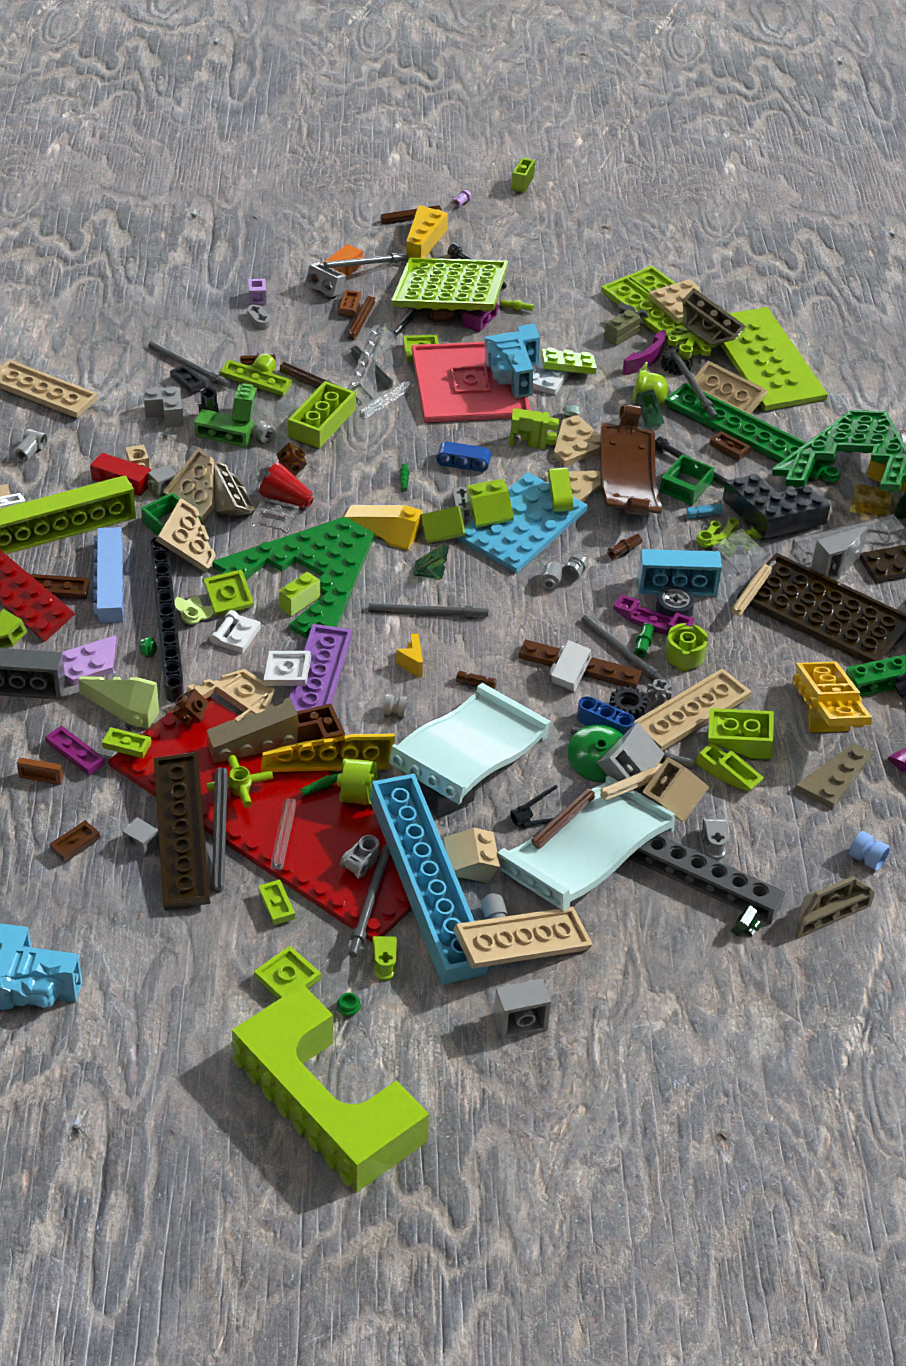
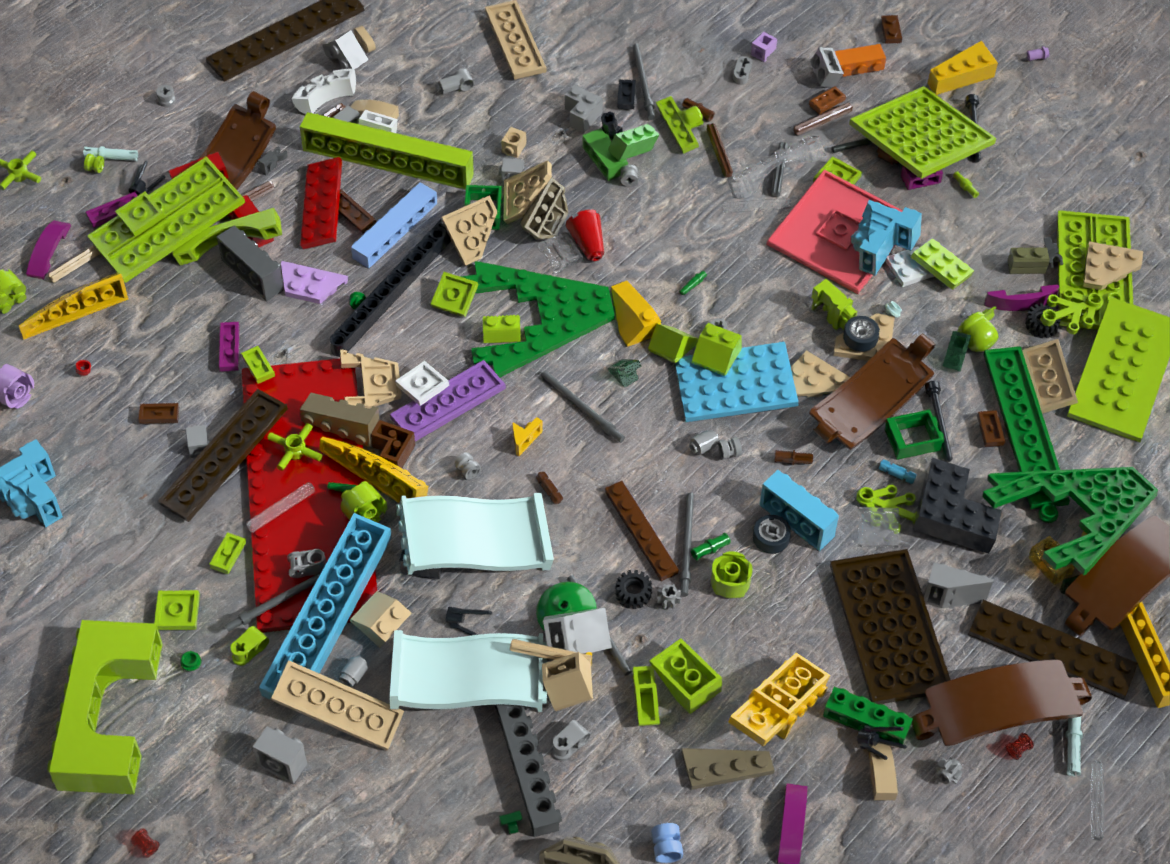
camera: 45 degrees right, 10 degrees up
(40, 771) = (192, 346): dark orange plate -> none
(110, 467) = (488, 146): red brick -> none
(129, 700) = (298, 334): yellowish green wedge -> none
(190, 707) = (321, 368): reddish brown brick -> none
(192, 610) = (421, 289): yellowish green plate -> none
(219, 830) = (245, 472): dark grey axle -> none
(241, 634) = (430, 334): white plate -> none
(292, 458) = (621, 213): reddish brown brick -> none
(322, 414) = (686, 188): lime brick -> none
(336, 234) = (891, 29): none -> reddish brown plate
(391, 258) = (909, 78): dark grey bar -> none
(402, 215) = (968, 42): reddish brown axle -> none
(464, 456) = (757, 295): blue beam -> none
(490, 1165) = (145, 843): none -> clear red bush
(523, 174) = (1116, 60): lime brick -> none
(560, 489) = (783, 374): lime beam -> none
(563, 818) = (469, 640): reddish brown axle -> none
(570, 666) = (622, 526): white brick -> none
(574, 434) = (861, 333): none -> black wheel
(596, 712) = (599, 579): blue beam -> none
(630, 610) = (738, 530): magenta slope -> none
(692, 707) = (665, 626): tan plate -> none
(706, 403) = (1010, 378): dark grey bar -> none
(709, 320) = (1097, 301): dark tan wedge -> none
(751, 590) = (841, 566): tan axle -> none
(880, 531) = (1023, 592): clear arch -> none

